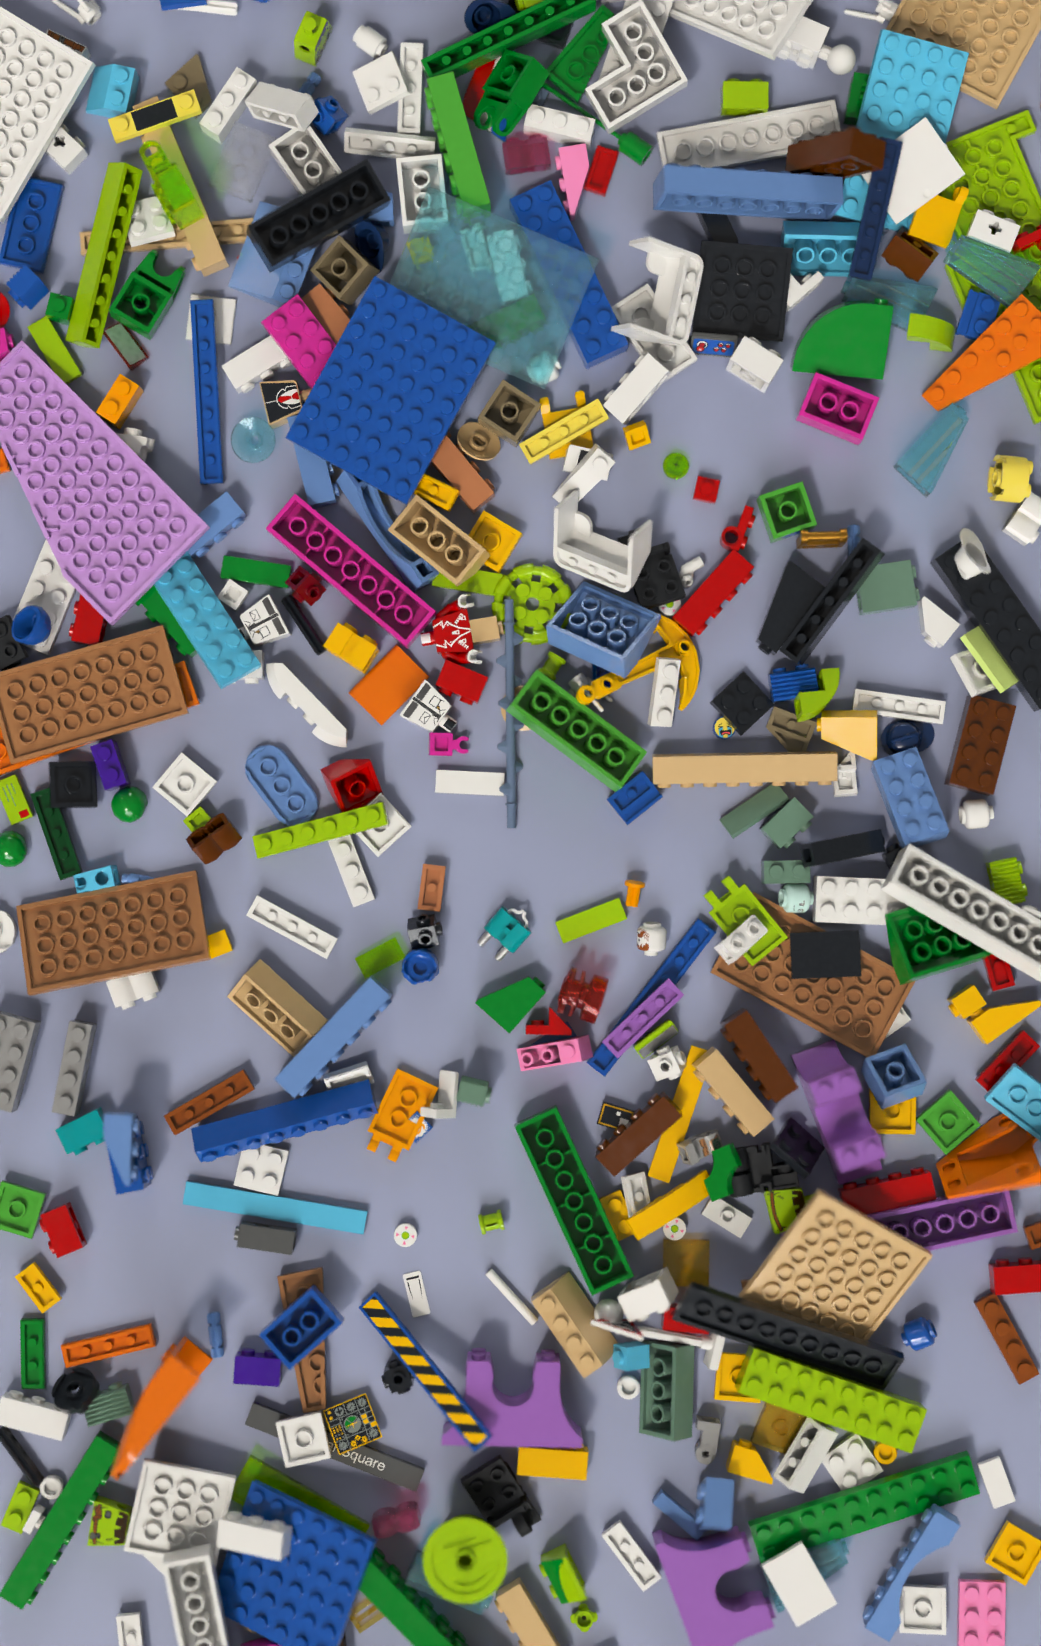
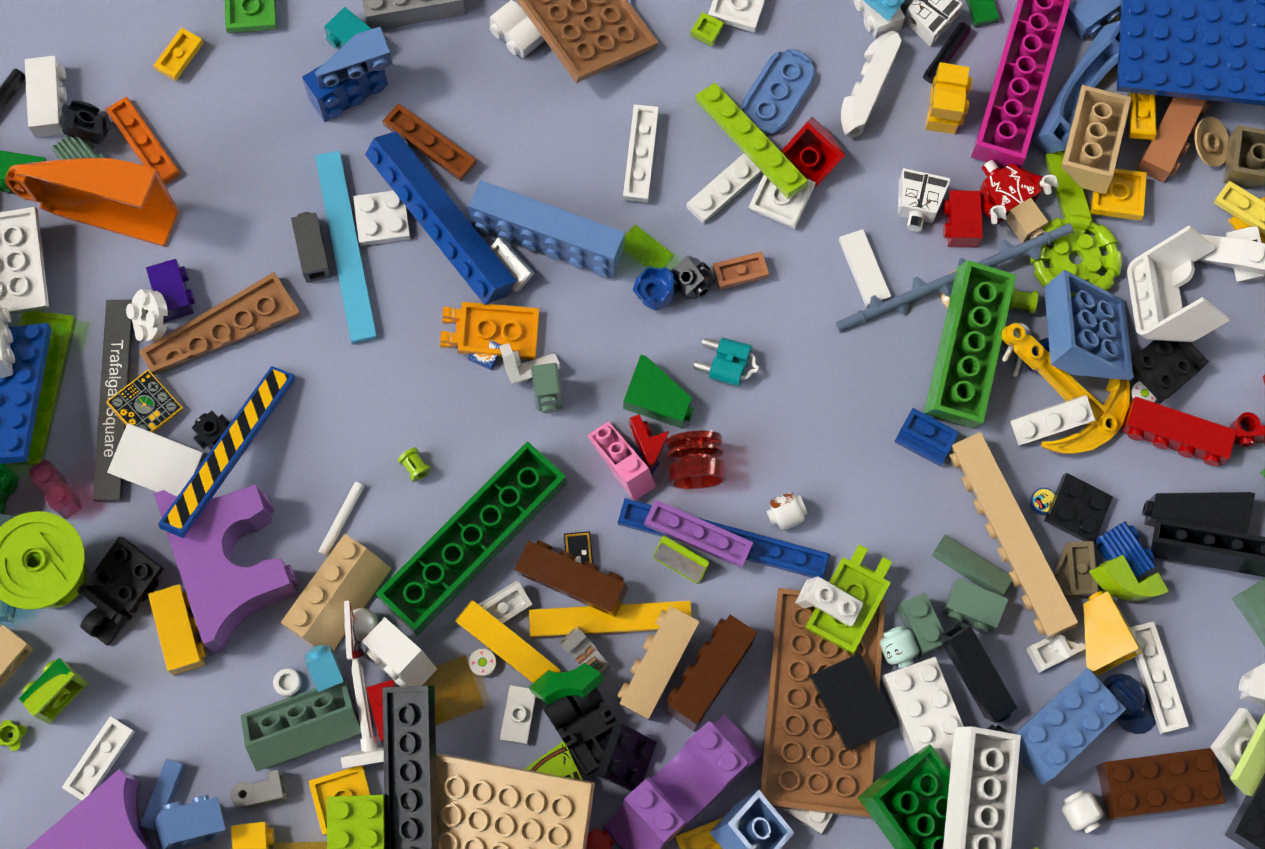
camera: 70 degrees right, 15 degrees down
(33, 1353) = (109, 75): green tile -> none
(62, 1230) = (245, 54): red brick -> none
(214, 838) = (697, 45): reddish brown brick -> none
(215, 1334) = (190, 237): medium blue axle -> none
(219, 943) = (593, 92): yellow tile -> none
(276, 1395) = (147, 315): none -> white plate
(277, 1008) = (556, 161): tan slope -> none
(301, 1326) = (230, 308): blue brick -> none
(303, 1439) = (110, 360): white plate -> none
(305, 586) = (988, 28): dark red brick -> none
(388, 685) = (925, 151): orange piece -> none
(405, 1234) = (366, 384): white tile -> none
(406, 1431) = (154, 461): none -> white tile
(416, 1294) = (307, 421): white sticker -> none
(443, 744) = (892, 225): dark pink plate -> none
(591, 920) = (777, 444): lime tile -> none
(616, 1211) = (478, 590): yellow plate -> none
(633, 892) = (826, 475): light orange piece -> none
(667, 1063) = (660, 579): white brick -> none
(687, 571) = (1187, 398): white arm -> none

